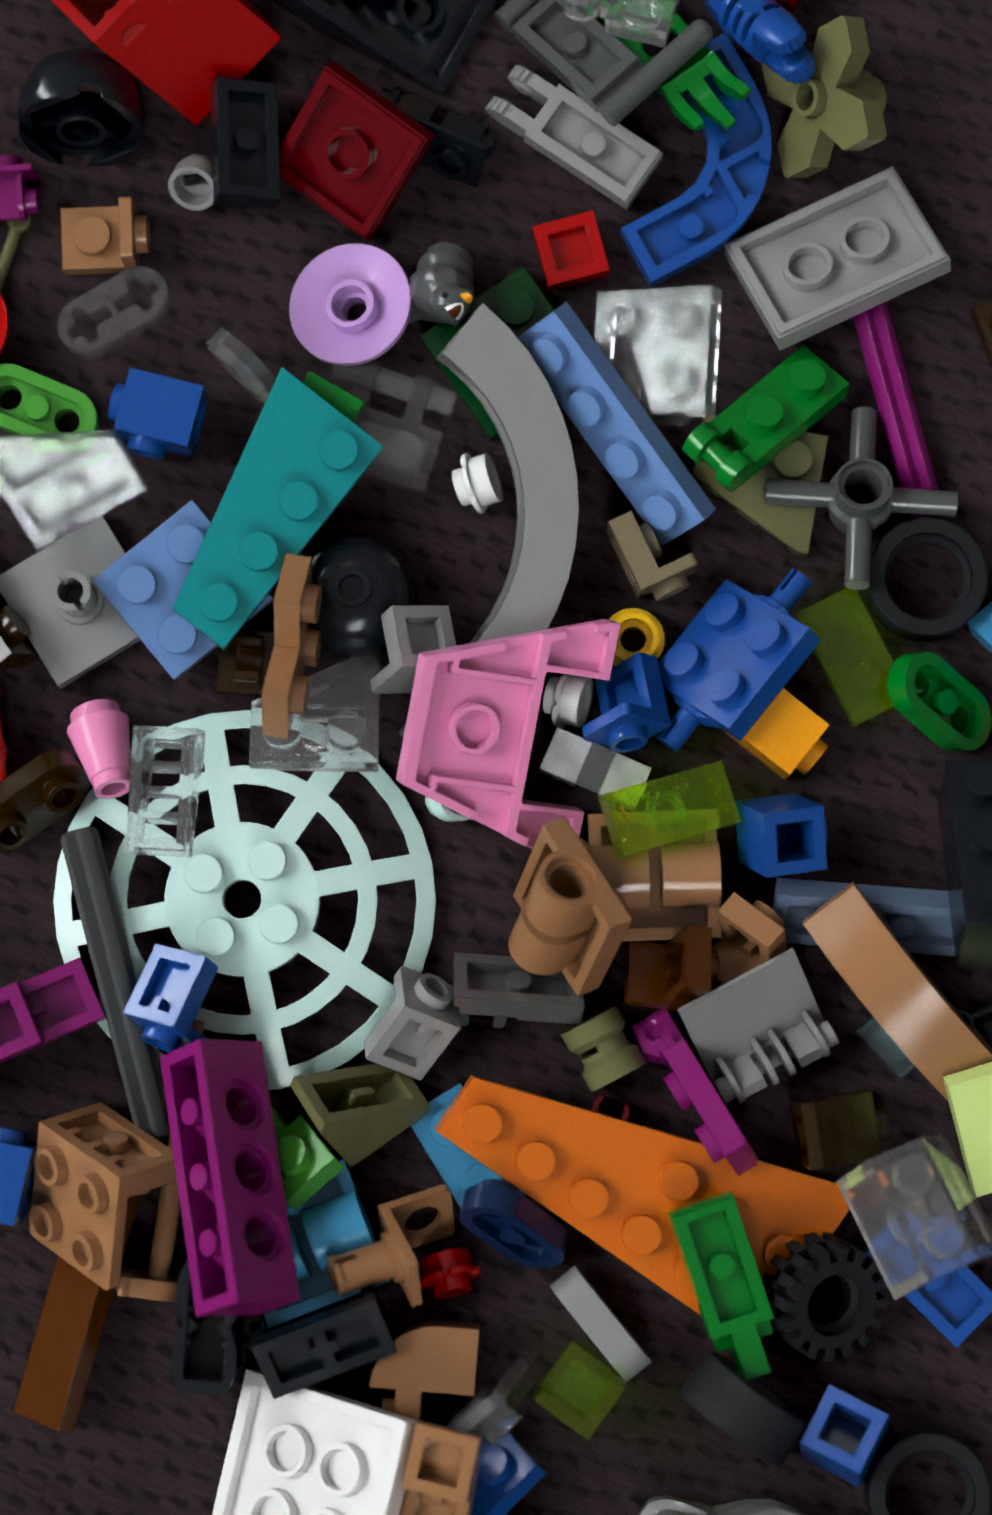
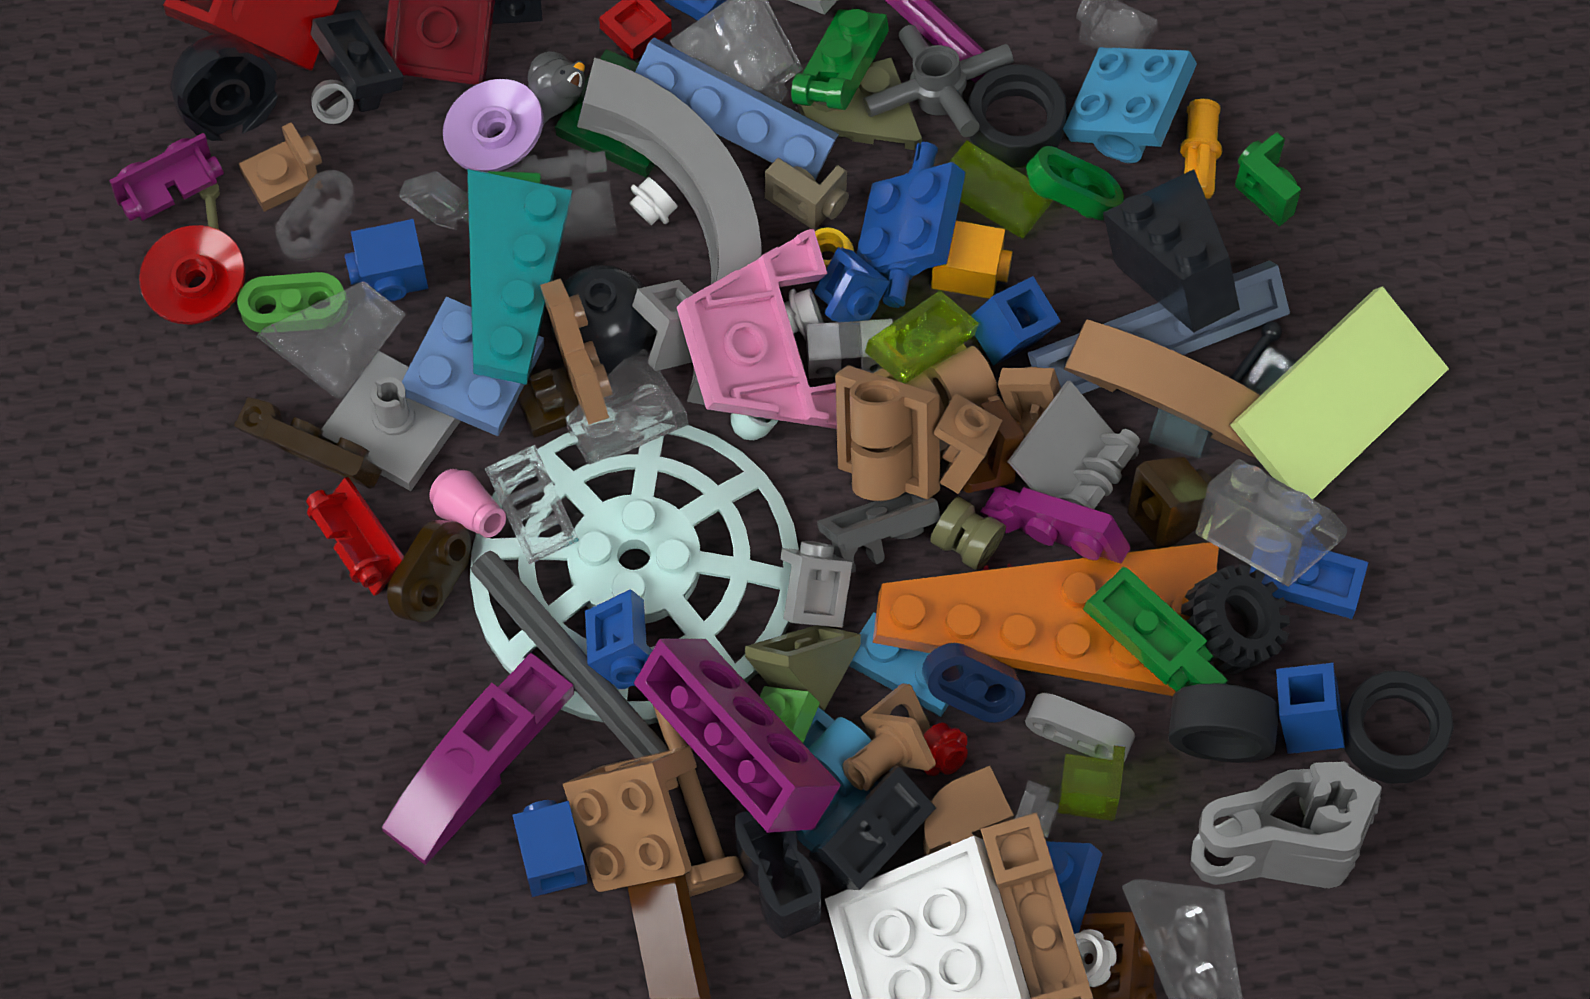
camera: 30 degrees left, 20 degrees down
(644, 965) = (969, 435): none -> medium nougat bracket

